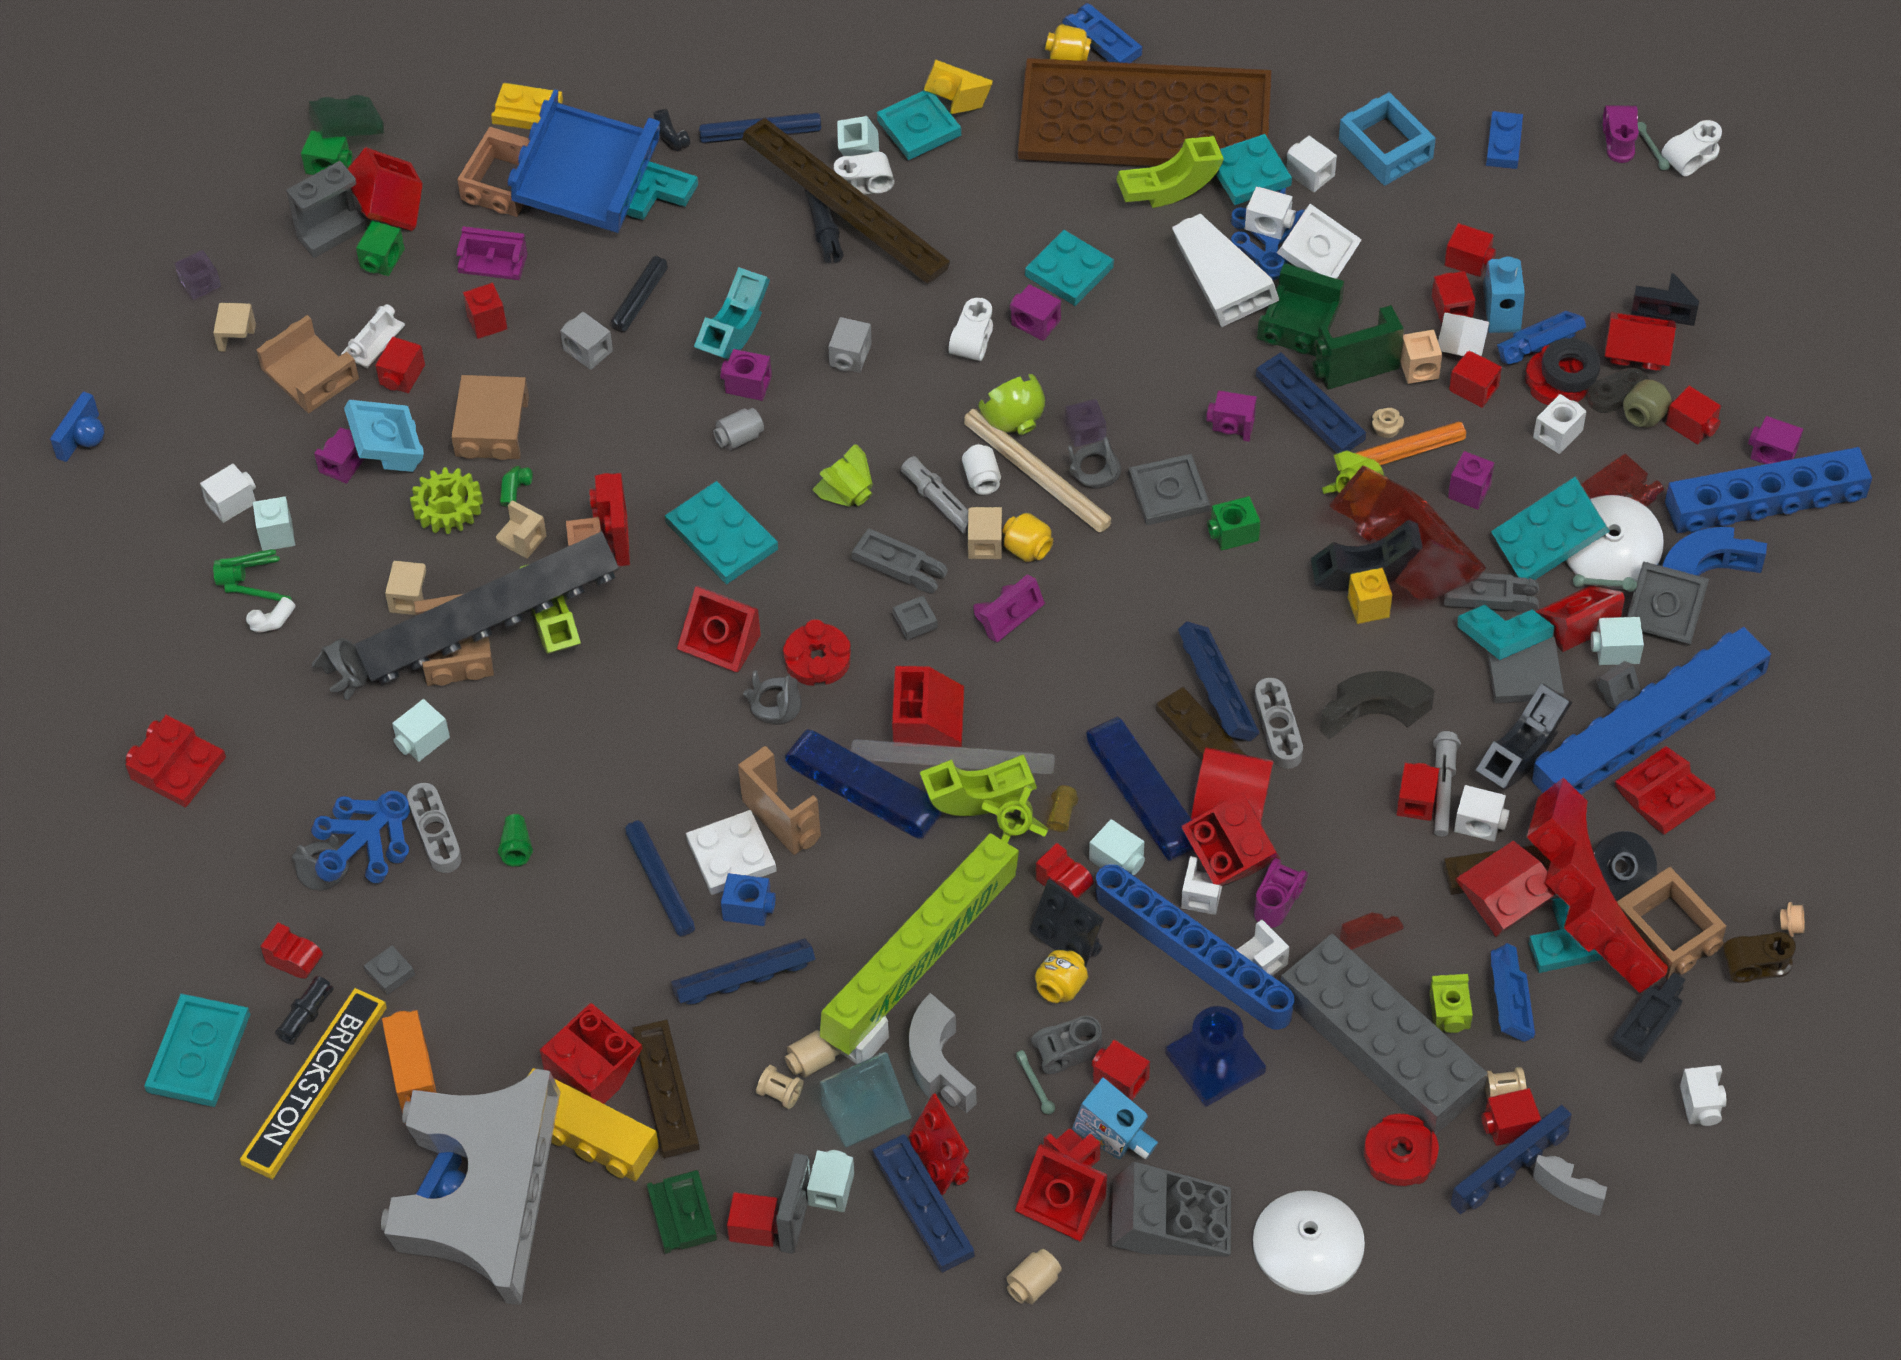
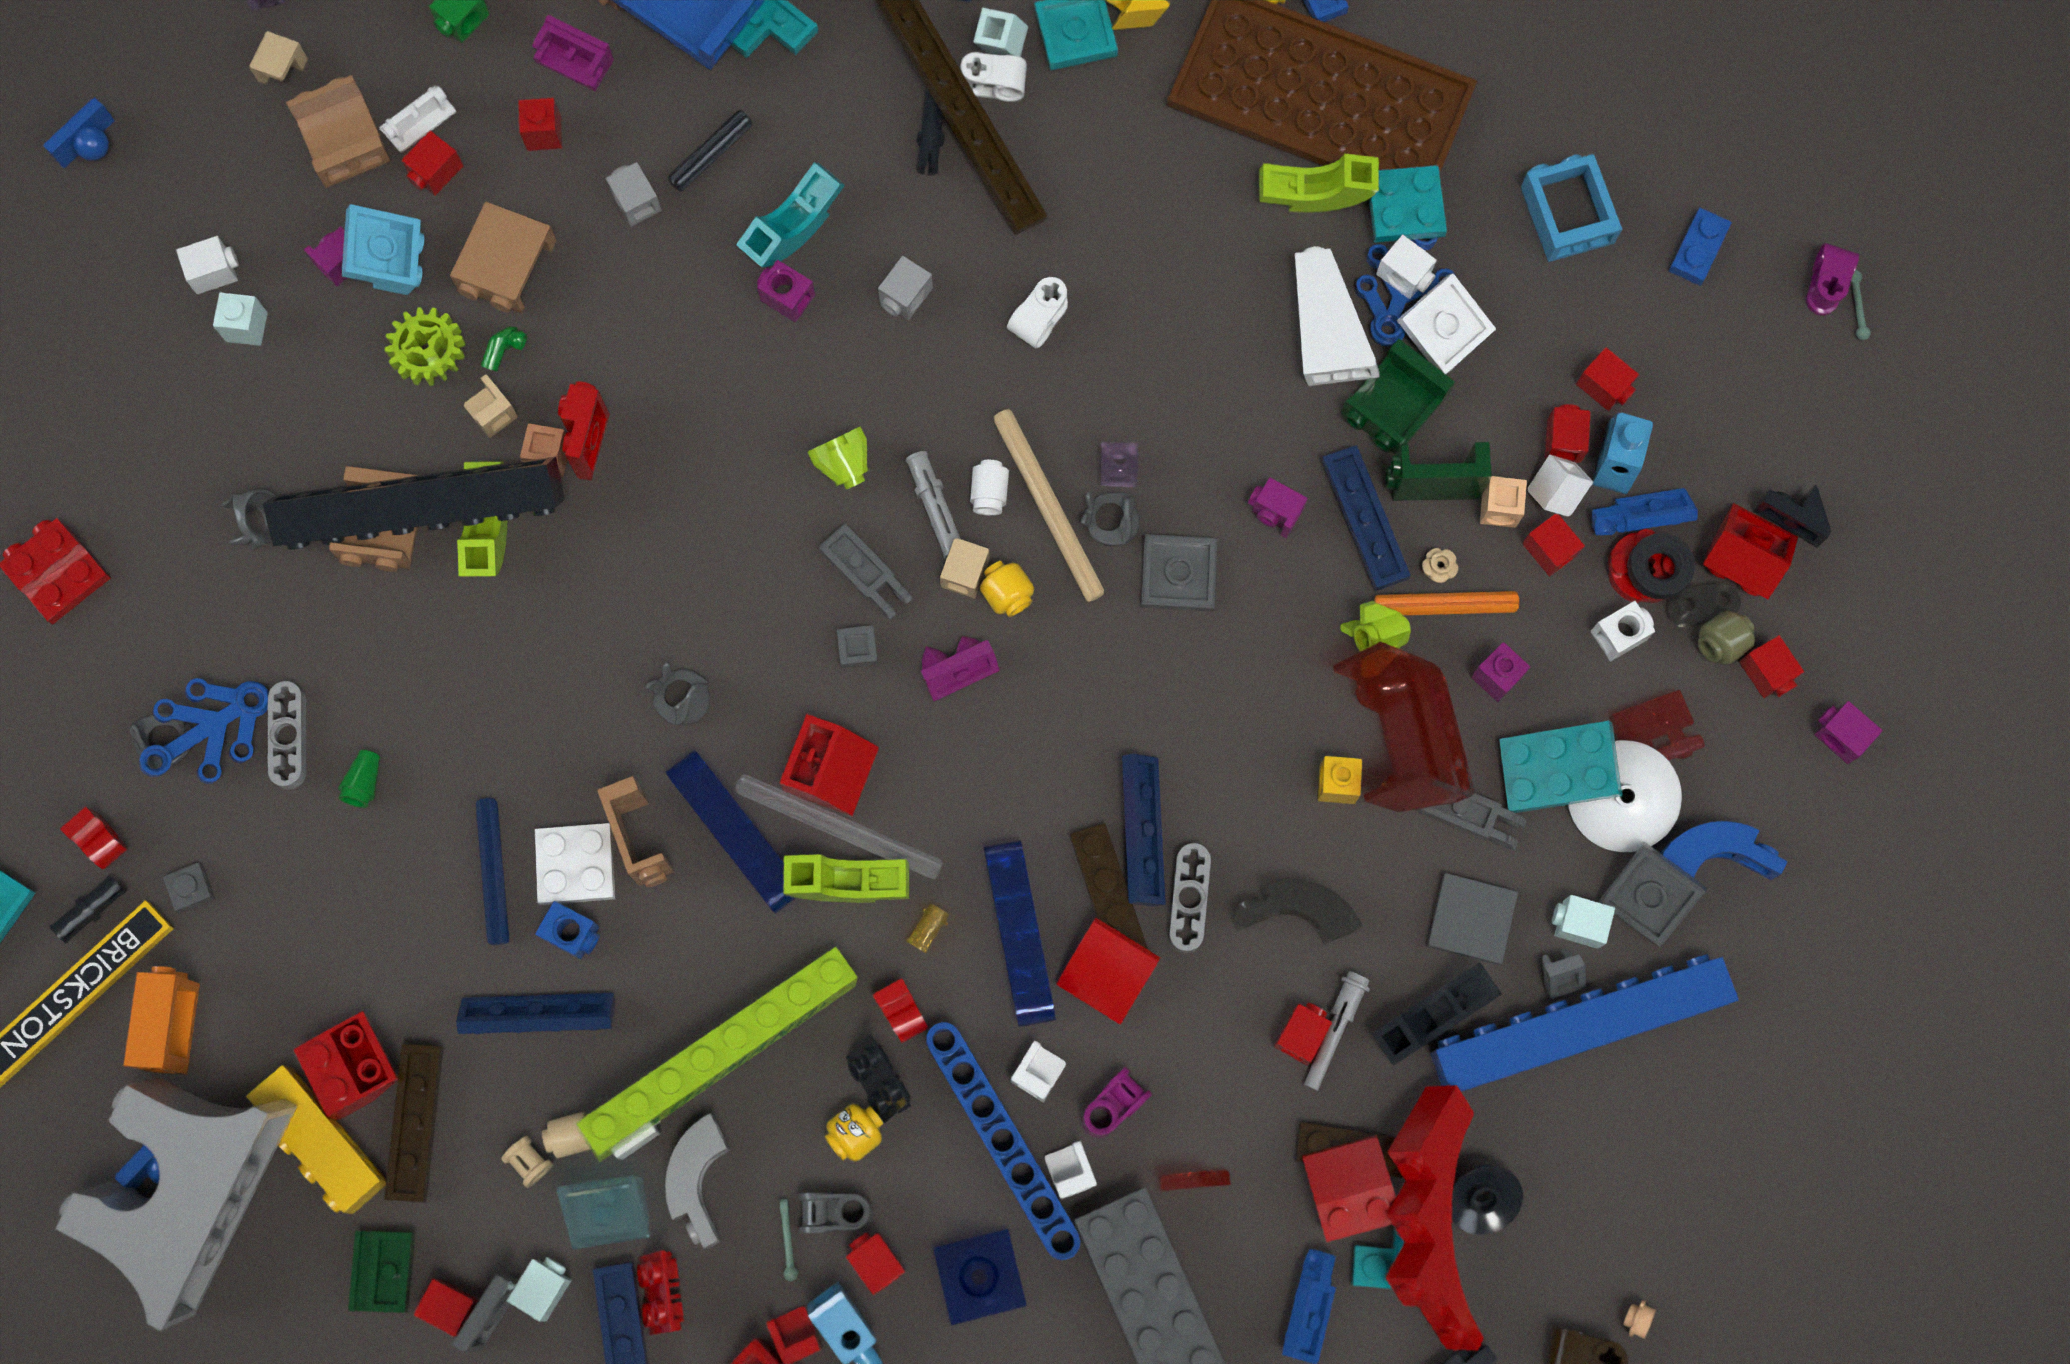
camera: 15 degrees right, 20 degrees up
(232, 570) = (184, 362): green plant -> none
(271, 621) = (204, 432): white arm -> none
(405, 586) = (347, 439): tan panel -> none
(420, 730) = (306, 618): light aqua brick -> none
(719, 629) = (648, 599): red slope -> none
(721, 532) = (695, 474): teal plate -> none
(738, 428) = (753, 354): light grey brick -> none
(813, 637) = (745, 634): red plate -> none
(1012, 825) = (871, 929): lime brick -> none
(1014, 405) = (1049, 425): lime cylinder -> none
(1035, 312) = (1114, 309): magenta brick -> none
(1069, 267) = (1172, 261): teal plate -> none
(1117, 847) = (965, 1001): light aqua brick -> none
(1230, 841) = (1083, 1036): red slope -> none
(1245, 521) = (1241, 630): green brick -> none
(1311, 163) = (1476, 213): white brick -> none
(1392, 553) = (1336, 736): black arch -> none
(1451, 1002) = (1243, 1284): lime brick -> none
(1481, 813) = (1359, 1083): white brick -> none
(1501, 636) = (1463, 878): teal plate -> none
(1579, 614) = (1555, 872): red slope -> none
(1628, 583) = (1617, 862): sand green hinge -> none
(1656, 891) = (1507, 1331): medium nougat window -> none
(1665, 790) = (1565, 1115): red slope -> none
(1693, 147) = (1902, 326): white piece -> none
(1768, 490) = (1911, 788): blue brick -> none

